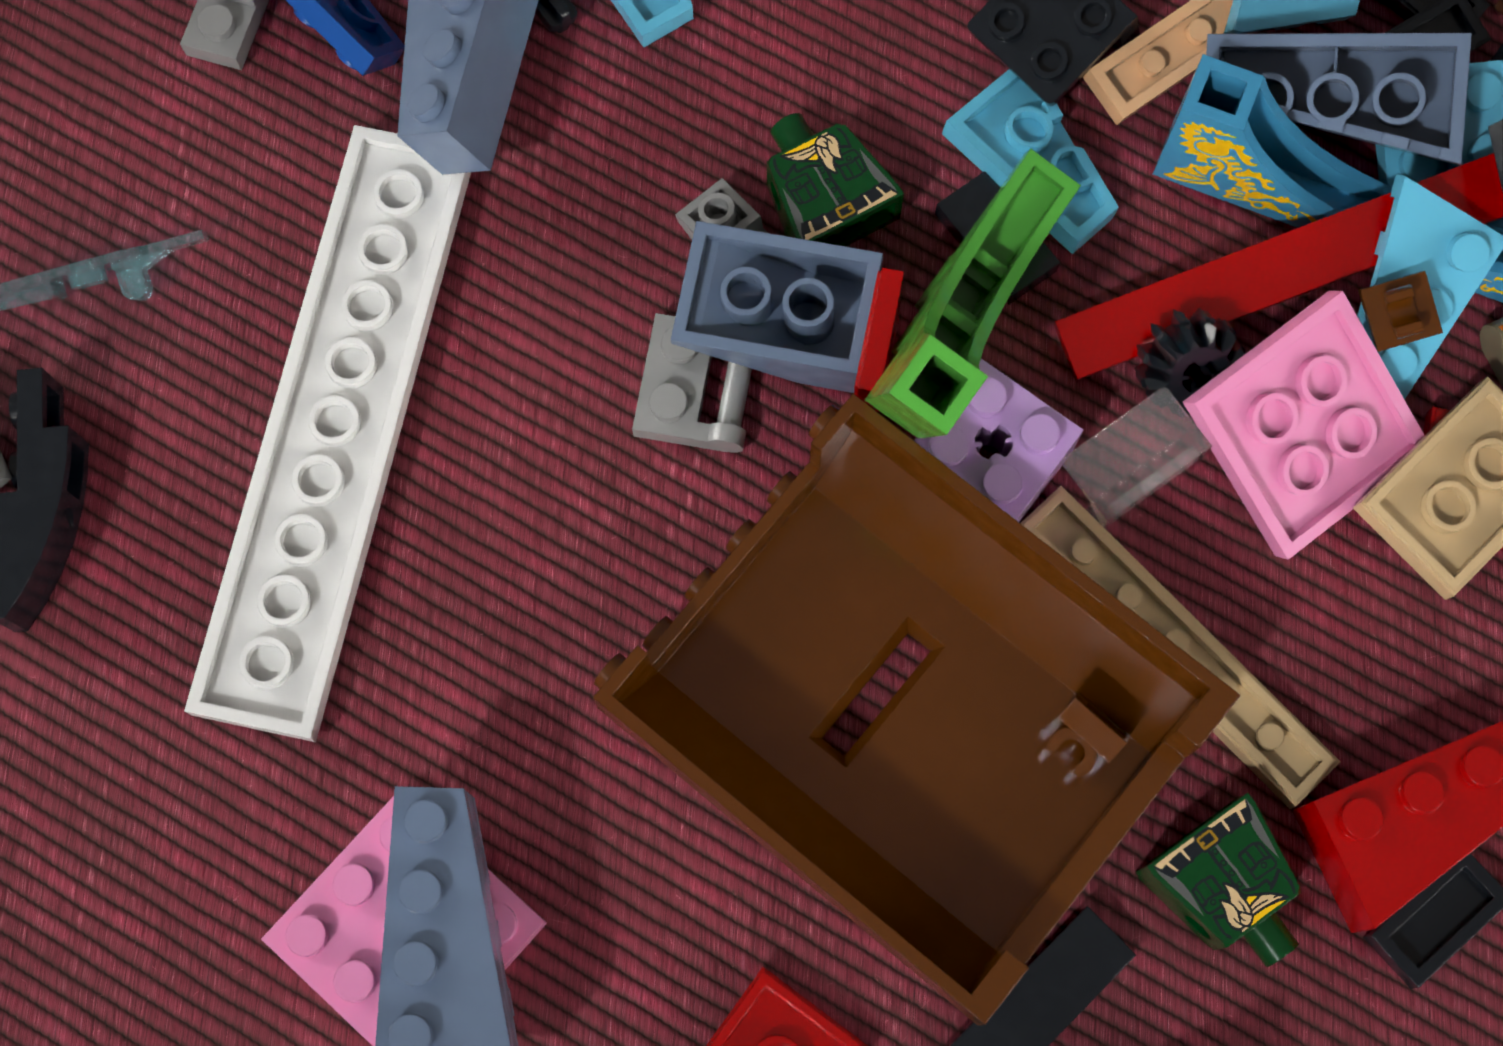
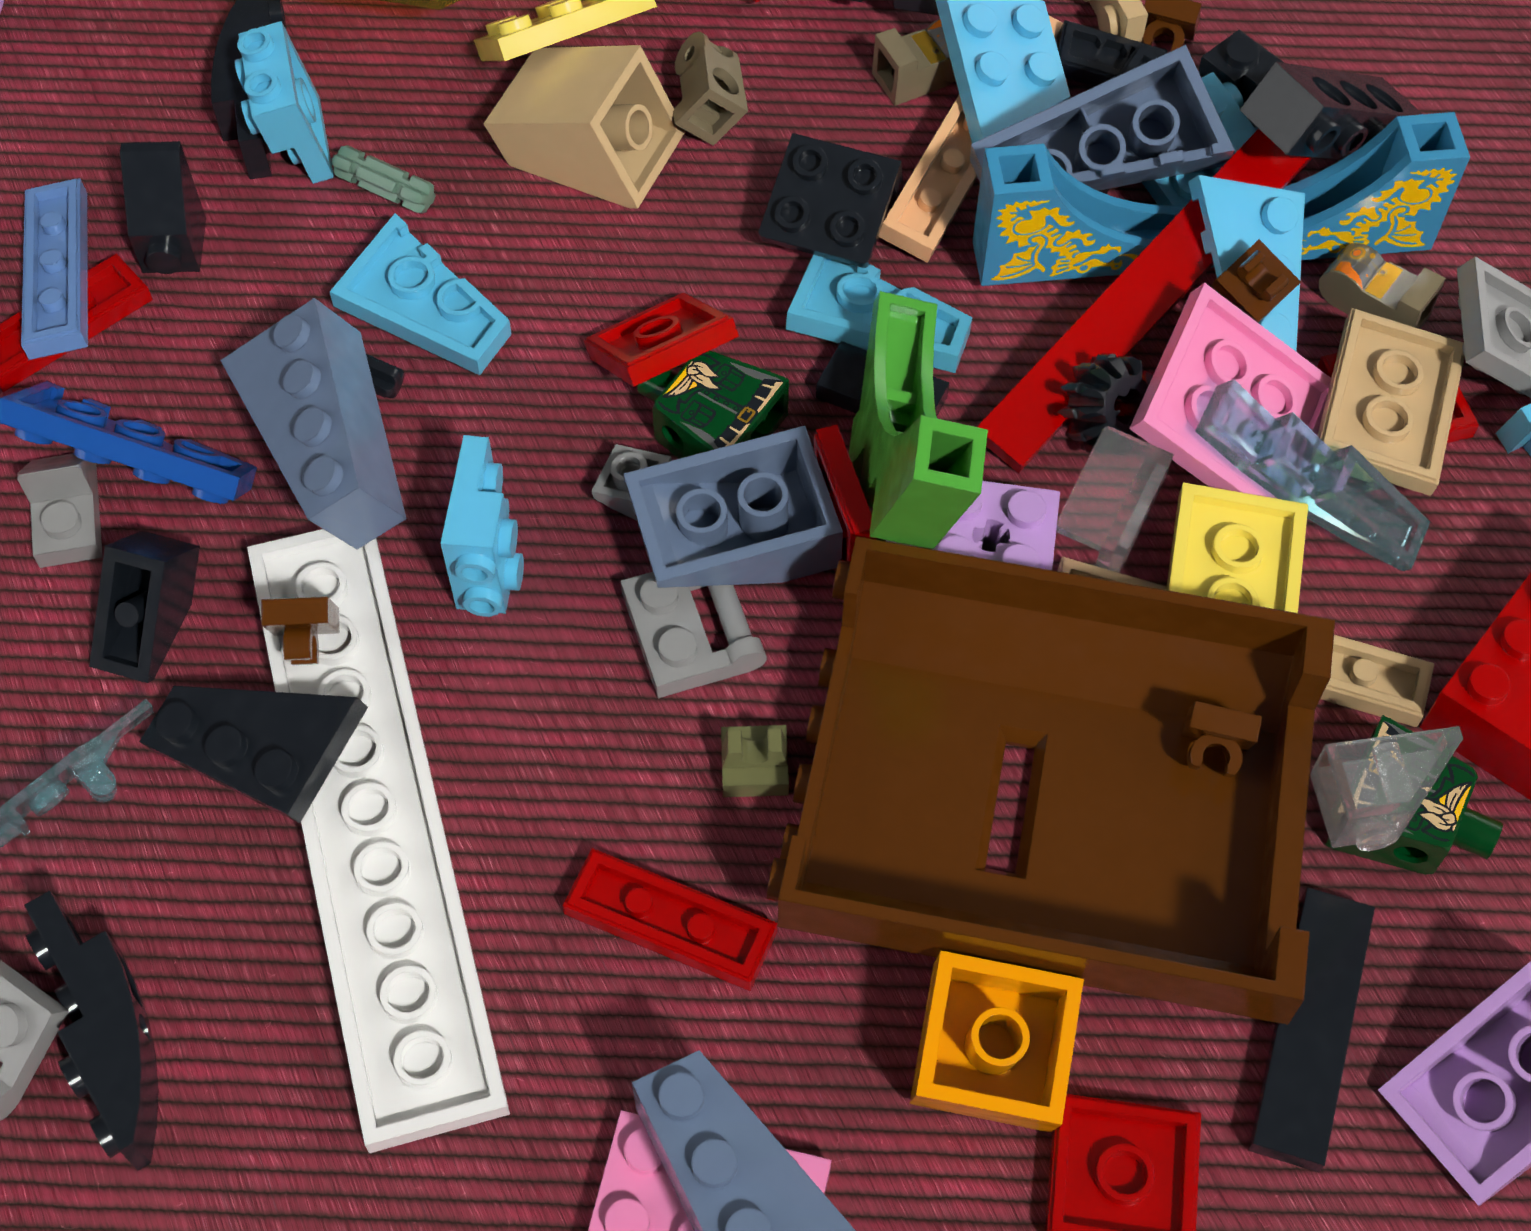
camera: 30 degrees left, 15 degrees down
(245, 133) = (142, 603): none -> black slope
(270, 315) = (256, 742): none -> black wing
(352, 229) = (299, 624): none -> reddish brown tile
(530, 641) = (670, 919): none -> red tile
(541, 213) = (479, 535): none -> medium azure plate
(680, 538) = (754, 761): none -> olive tile
(723, 905) = (997, 1041): none -> light orange brick
(816, 92) = (660, 338): none -> red tile
(1193, 863) = (1378, 784): none -> clear slope
(1211, 575) = (1238, 547): none -> light yellow plate
(1336, 529) = (1295, 465): none -> clear light blue slope

